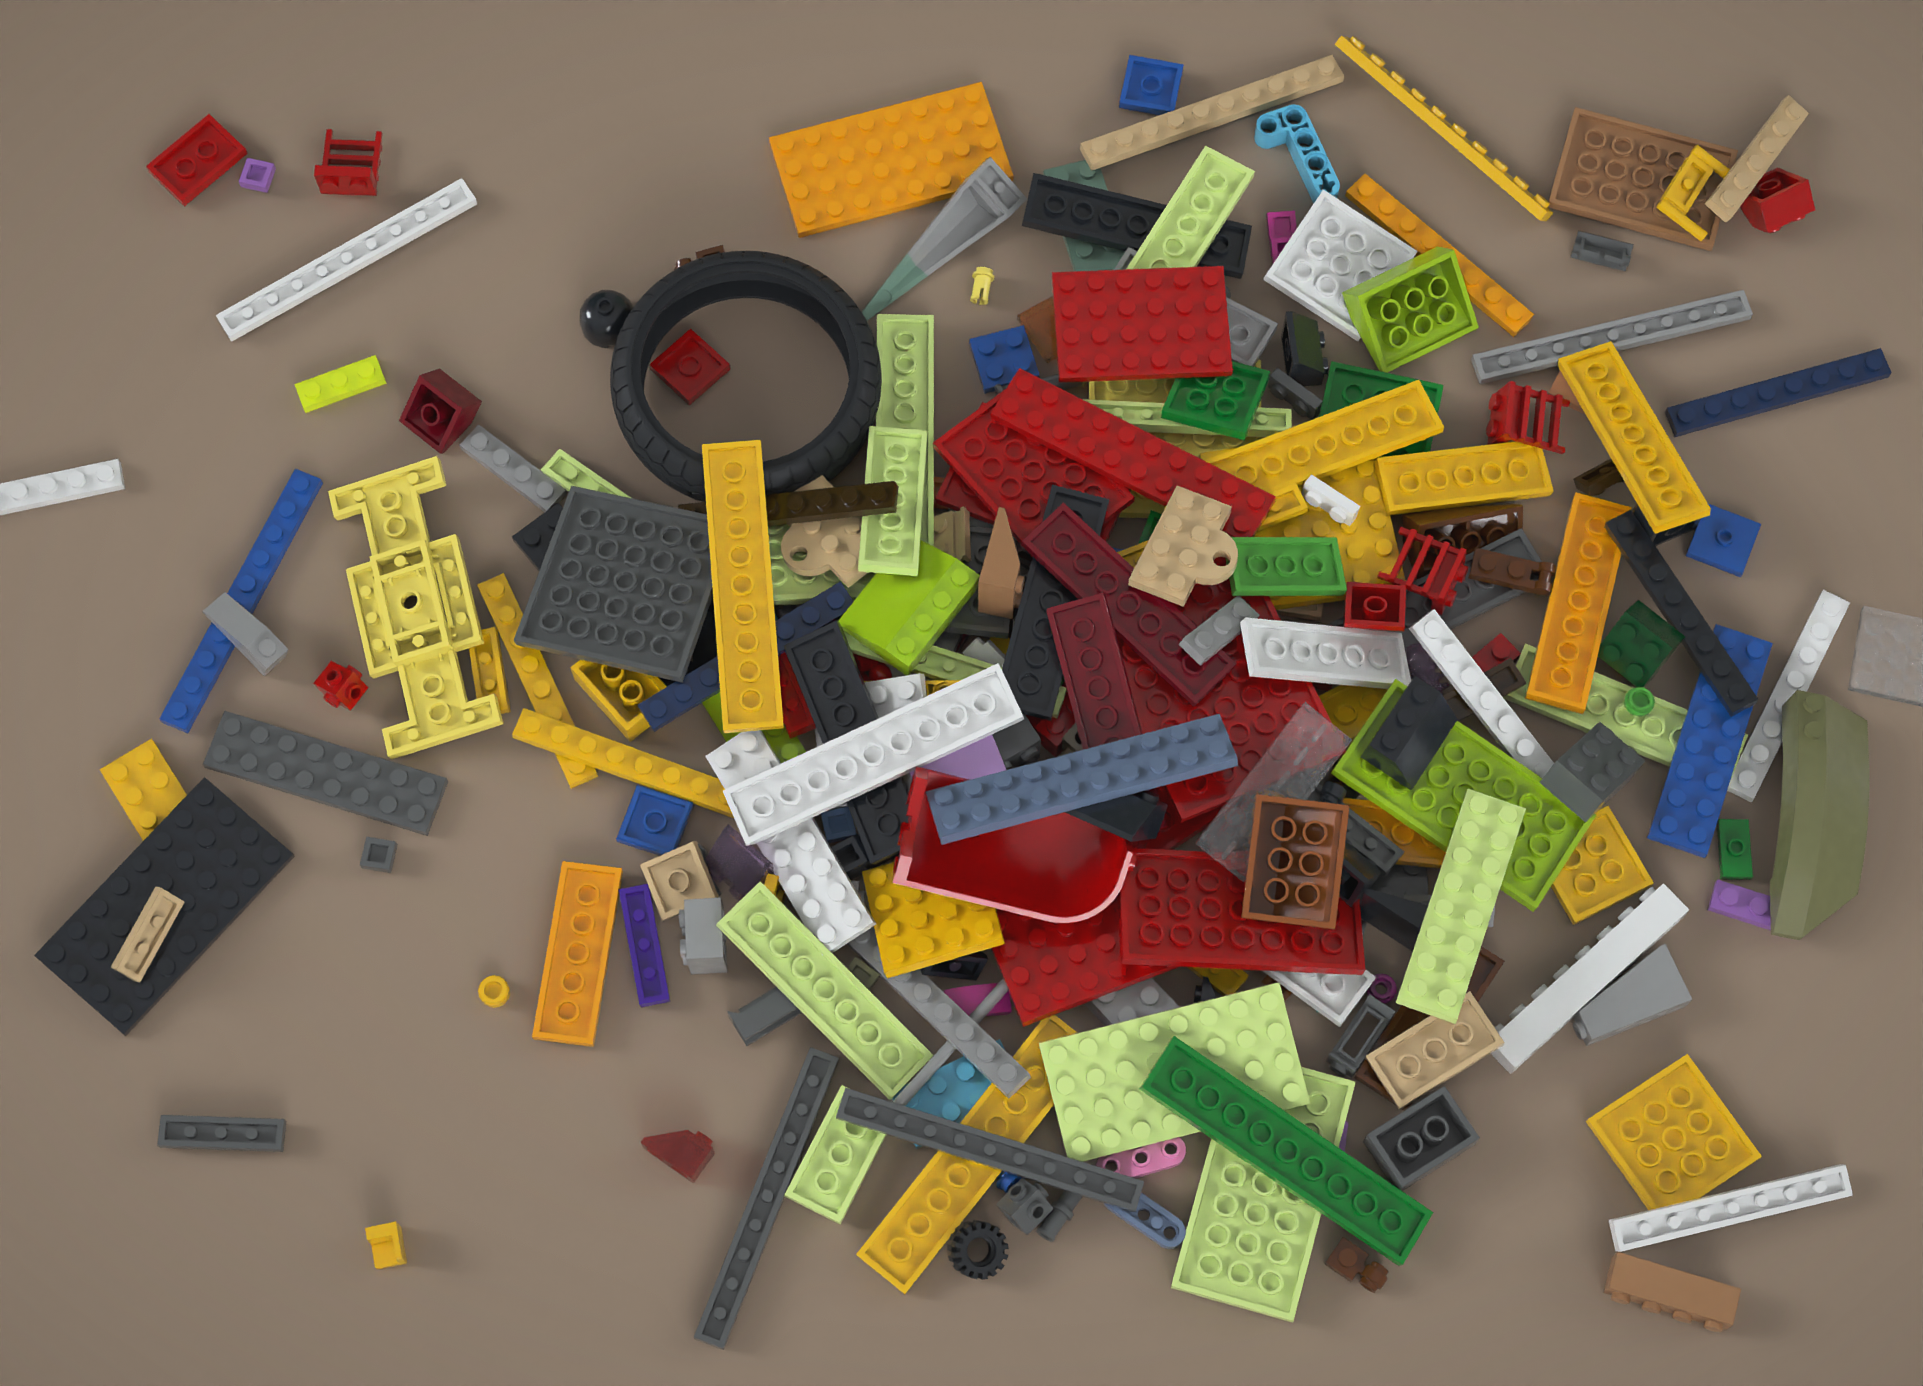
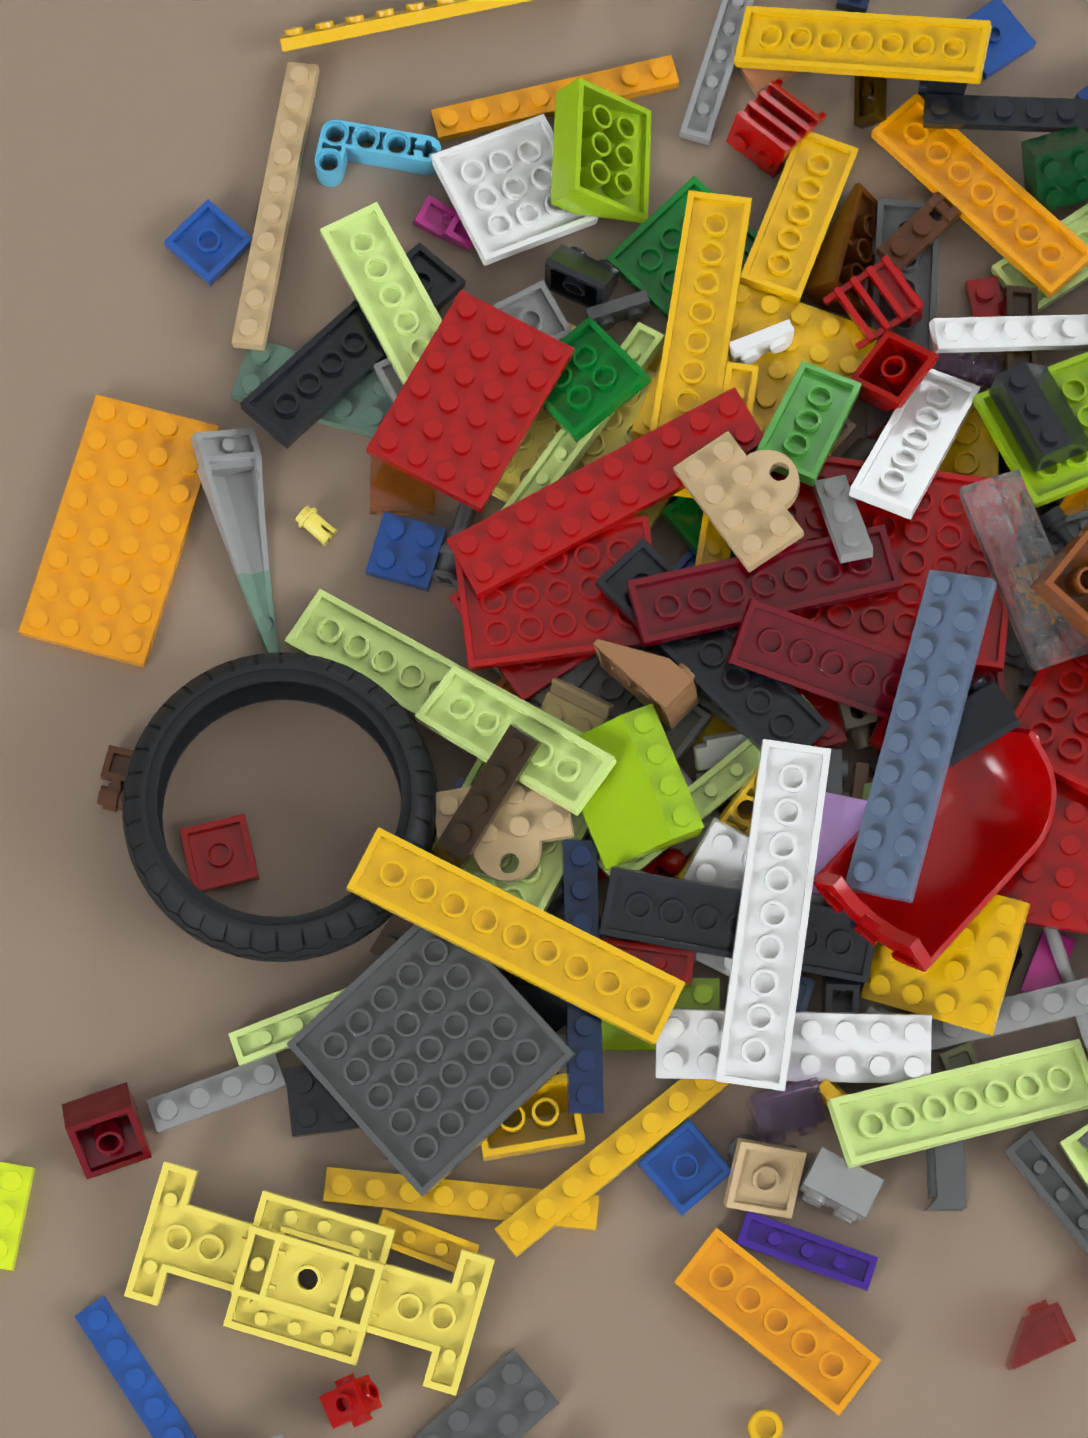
camera: 60 degrees left, 5 degrees up
(604, 316) = (113, 904): black cylinder -> none

